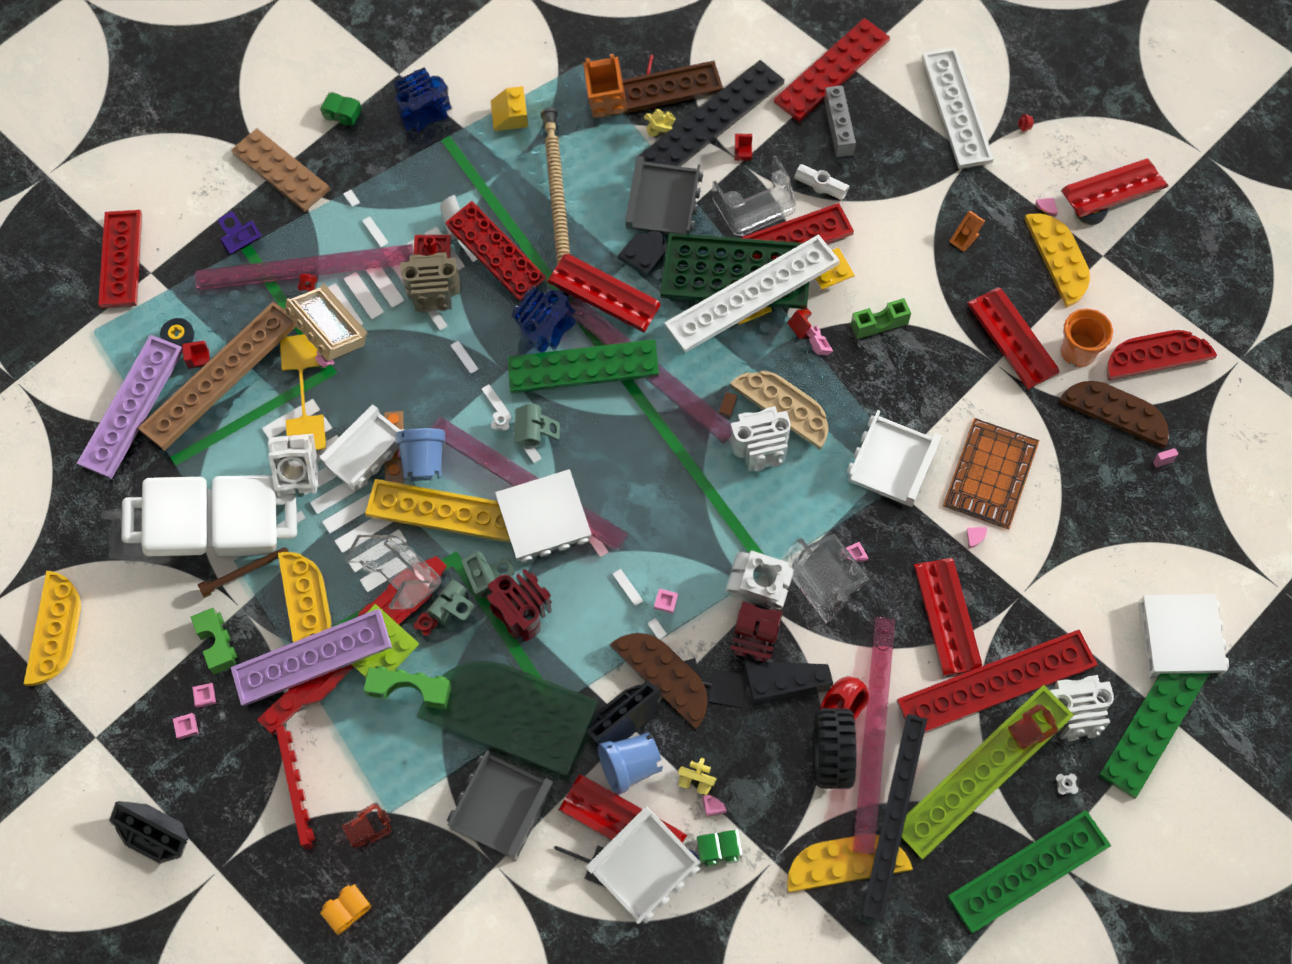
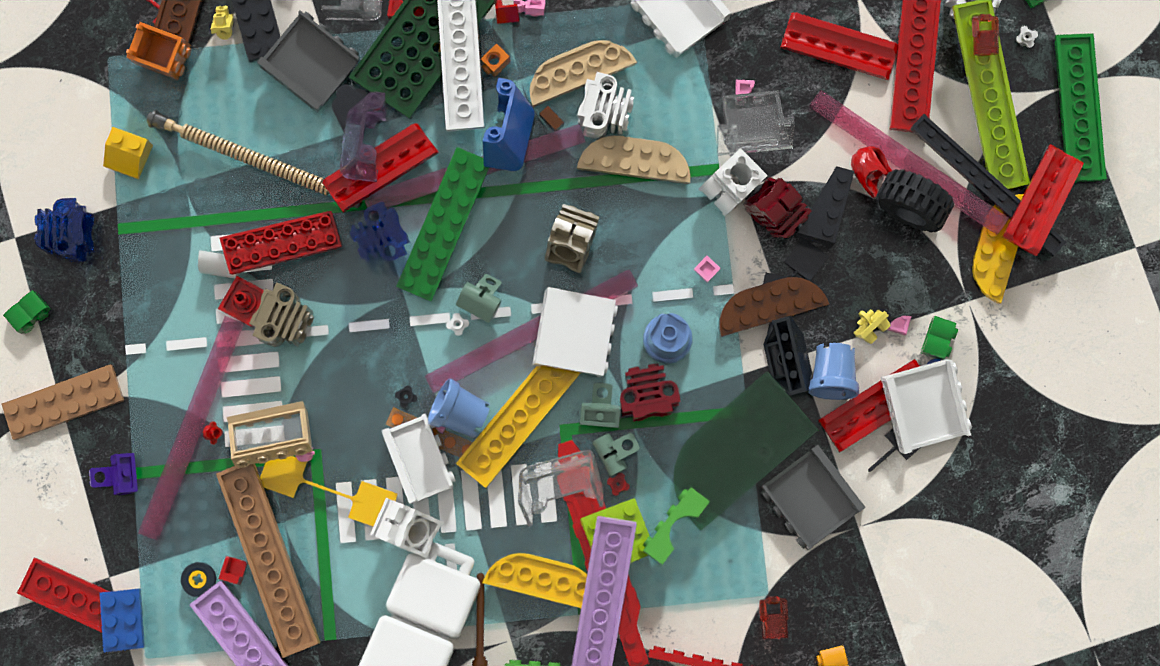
camera: 60 degrees left, 15 degrees up
(115, 295) = (122, 620): none -> blue plate
(414, 407) = (406, 391): none -> black plate
(582, 597) = (667, 338): none -> medium blue piece
(626, 468) = (571, 238): none -> dark tan piece
(642, 256) = (359, 159): none -> clear purple windscreen
(693, 373) = (507, 146): none -> blue windscreen
(733, 492) = (635, 159): none -> tan plate
(755, 341) = (495, 52): none -> orange brick
(910, 874) = (1043, 200): none -> red plate

